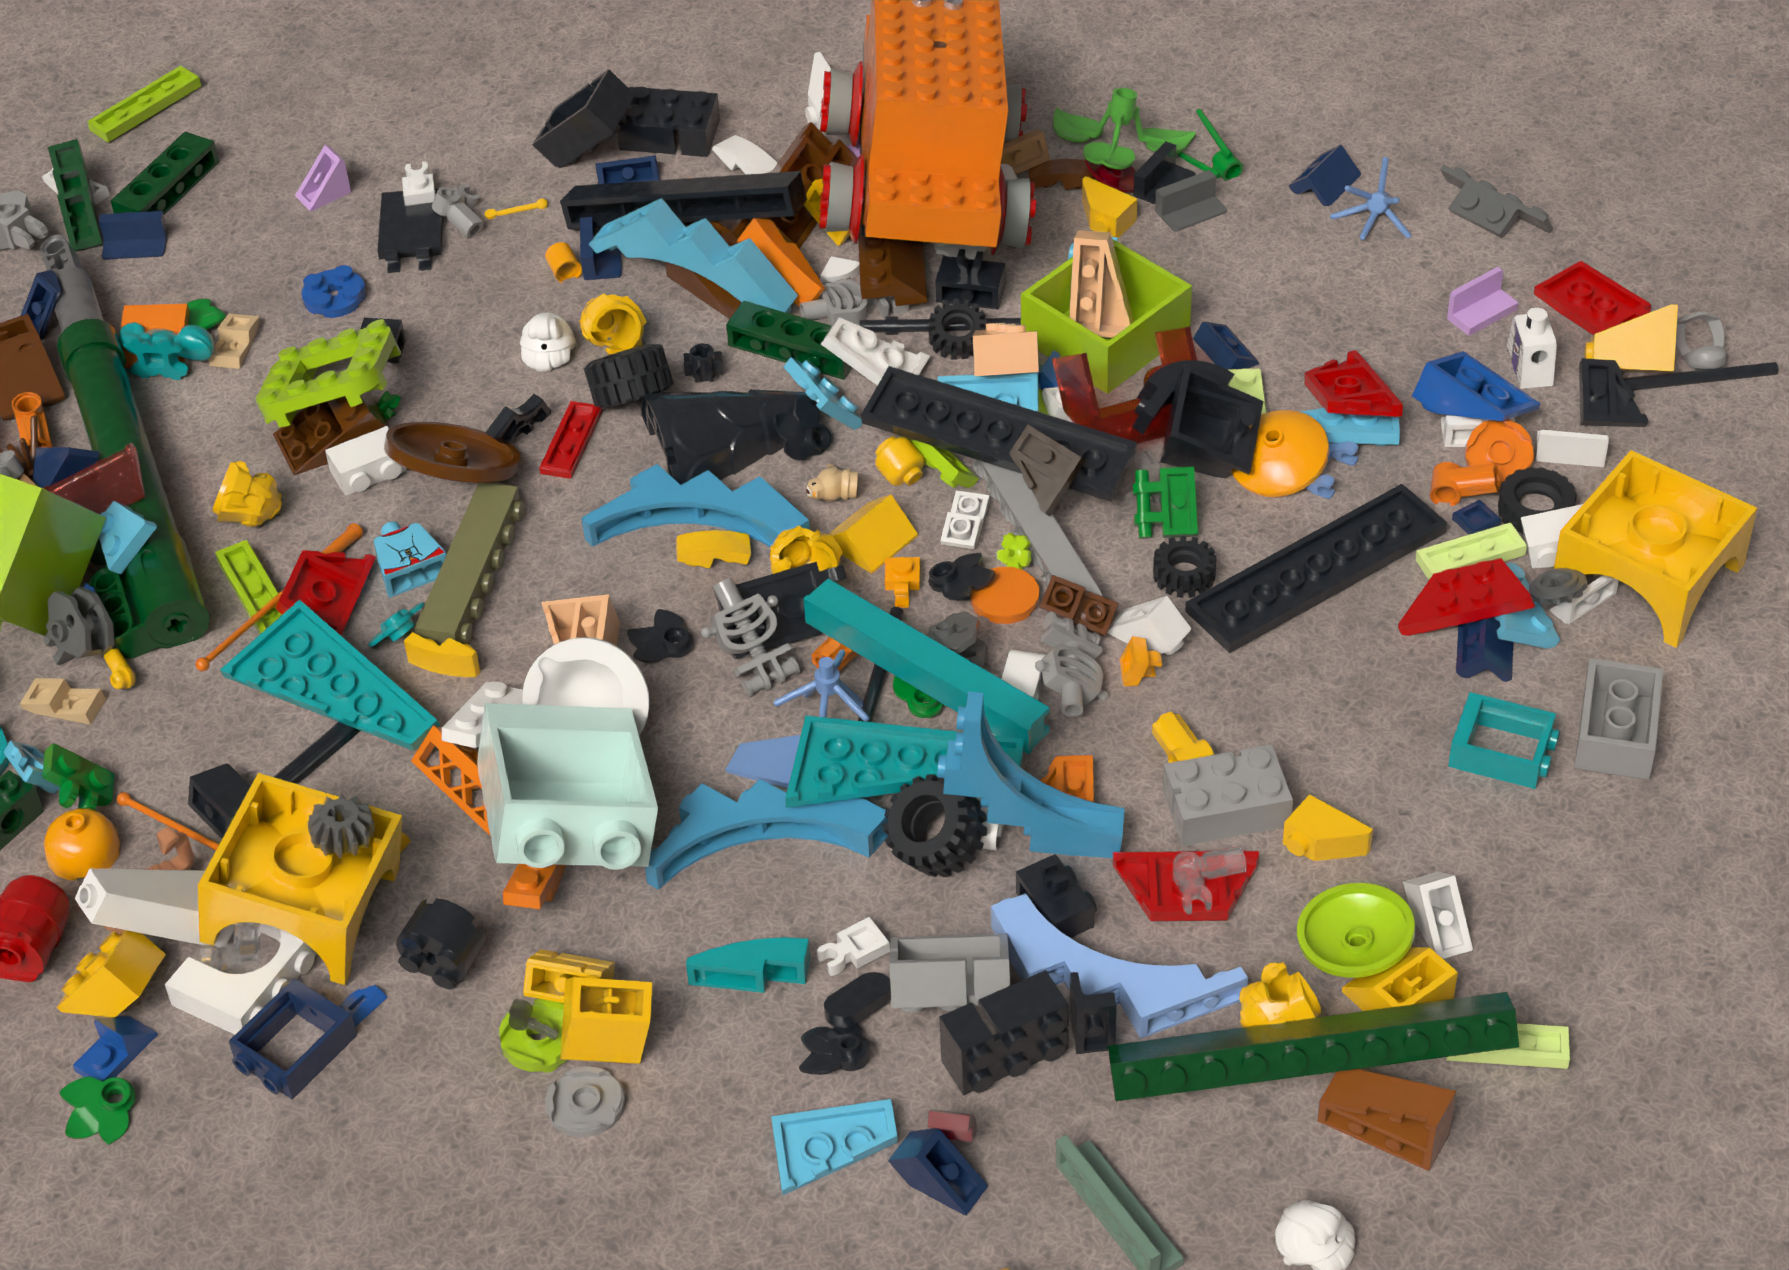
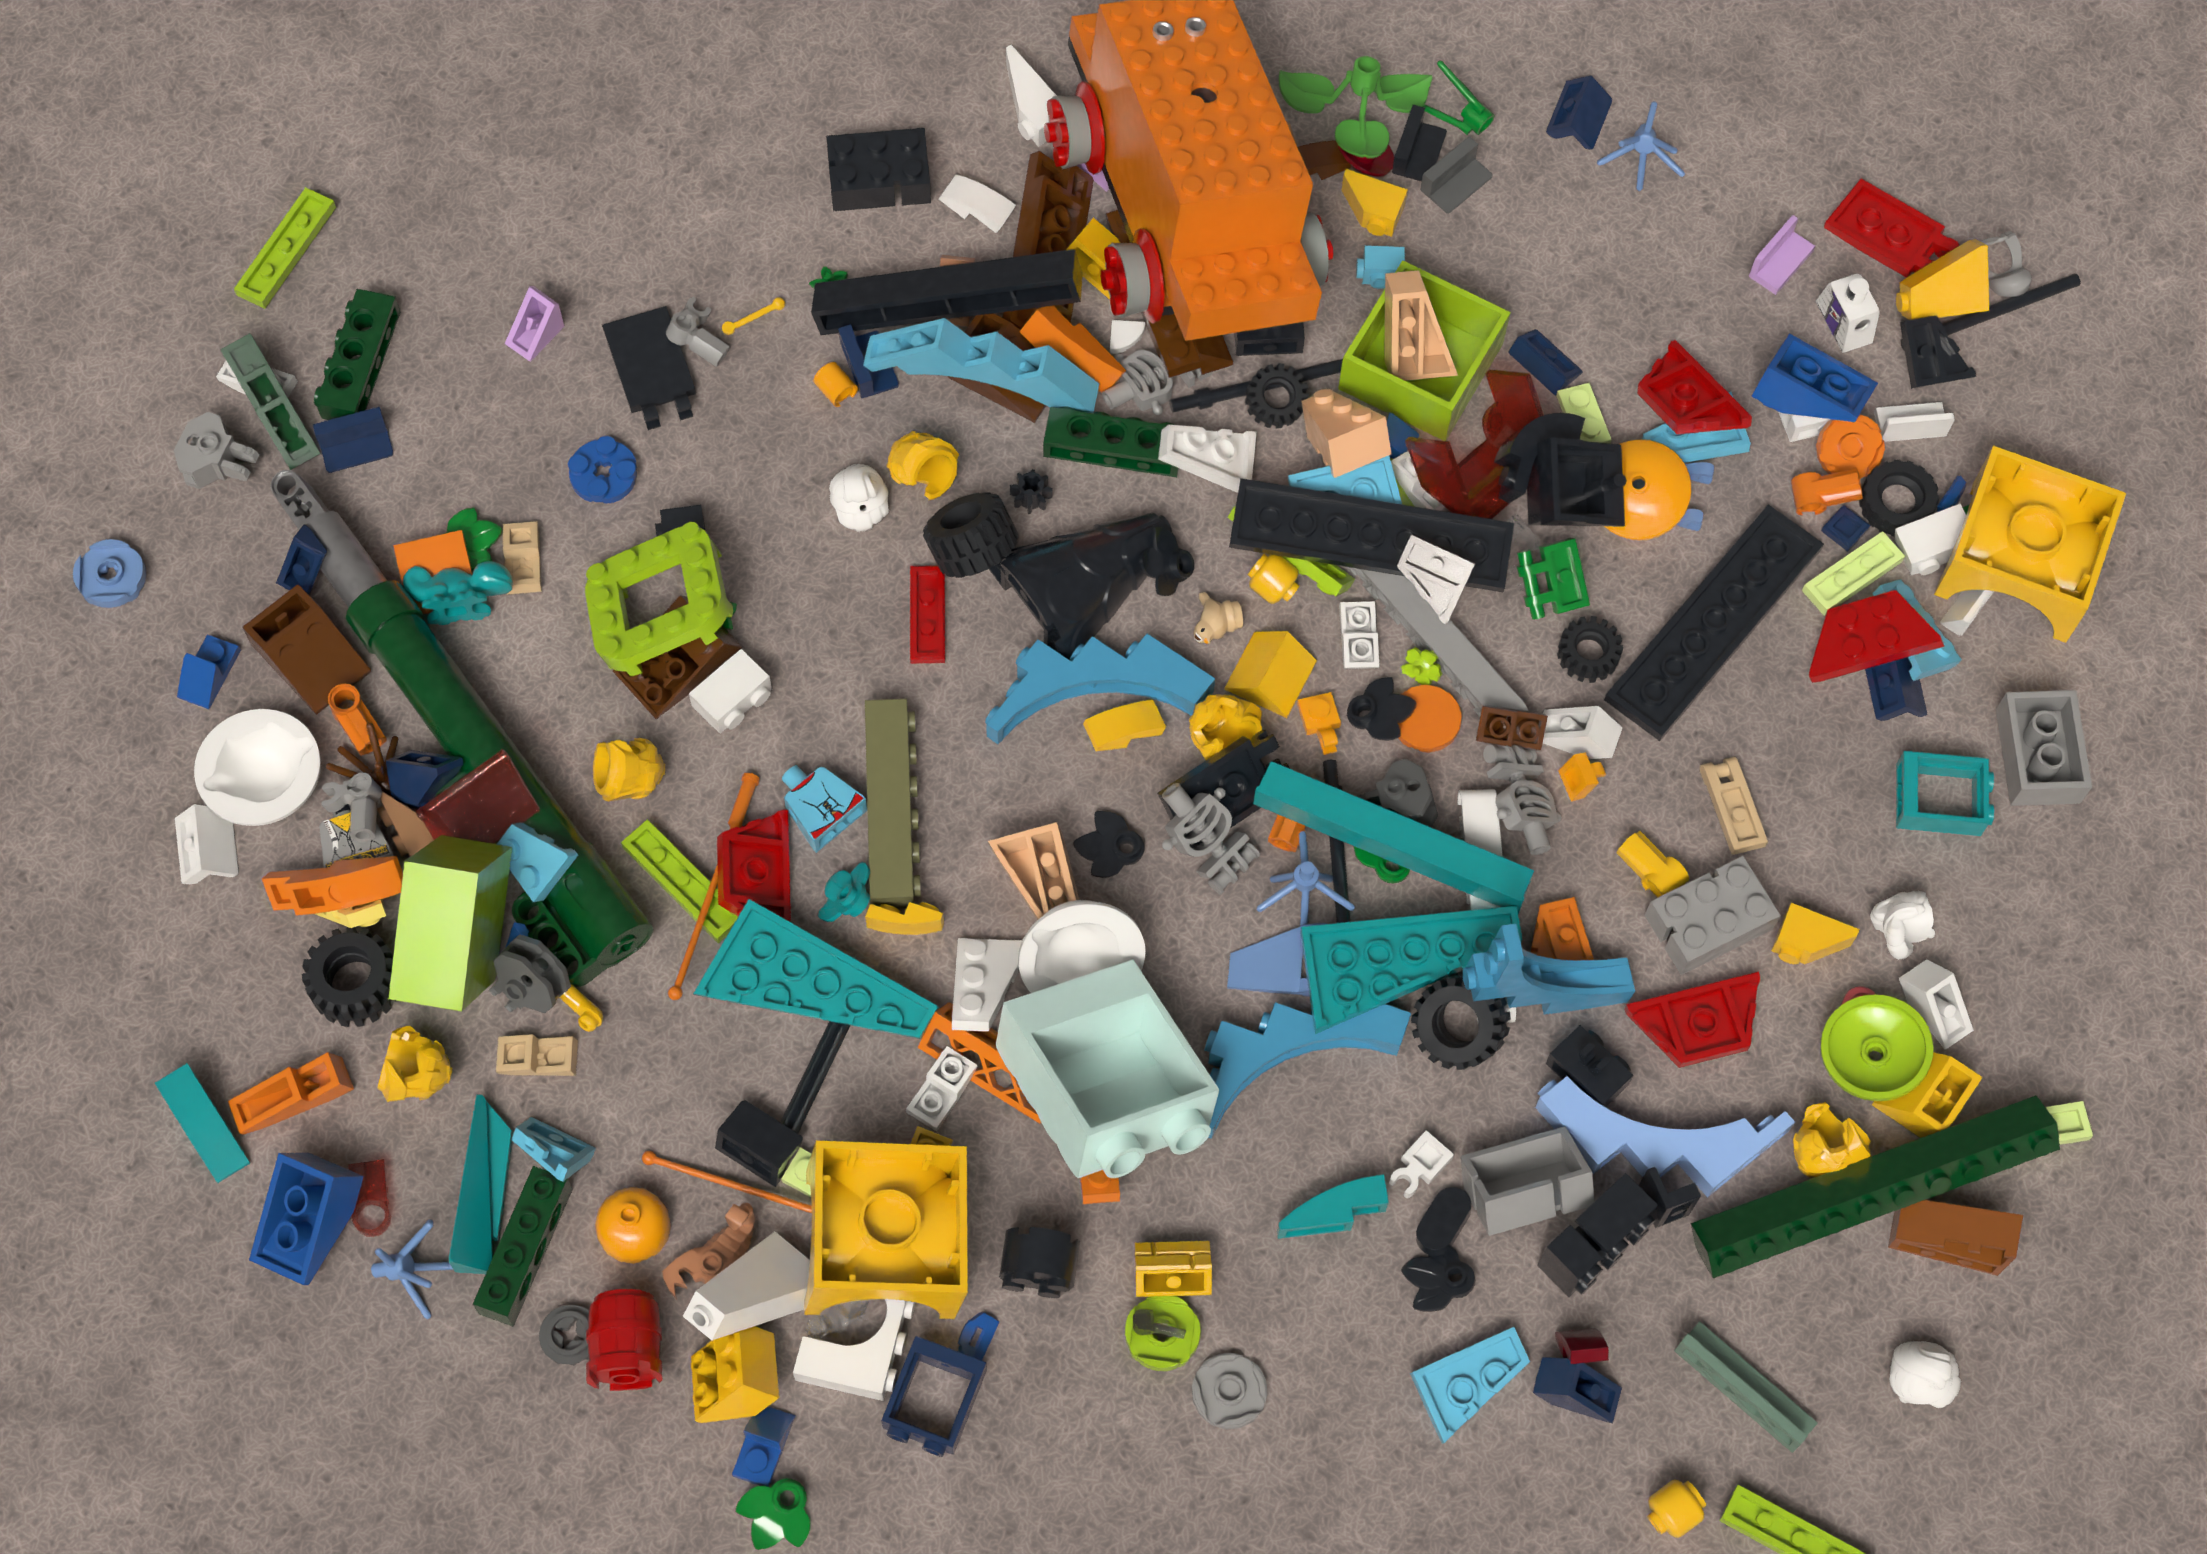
camera: 20 degrees left, 20 degrees up
(77, 778) = (606, 1155): green hinge -> none
(341, 826) = (913, 1192): dark grey gear -> none
(418, 185) = (641, 310): white plate -> none
(422, 792) = (942, 1088): none -> white slope
(451, 452) = (824, 671): reddish brown dish -> none
(518, 420) = (871, 609): black tile -> none
(584, 120) = (800, 194): black piece -> none
(605, 1020) = (1230, 1308): yellow slope -> none
(628, 170) = (857, 246): dark blue slope -> none
(823, 392) = (1192, 523): medium azure wing -> none
(1190, 870) = (1706, 1013): clear bar -> none
(1284, 715) = (1734, 806): none -> tan plate
(1426, 837) = (1904, 921): none -> white hair
(1487, 207) = (1752, 126): dark grey bracket -> none
(1558, 586) = (1955, 597): dark grey gear -> none

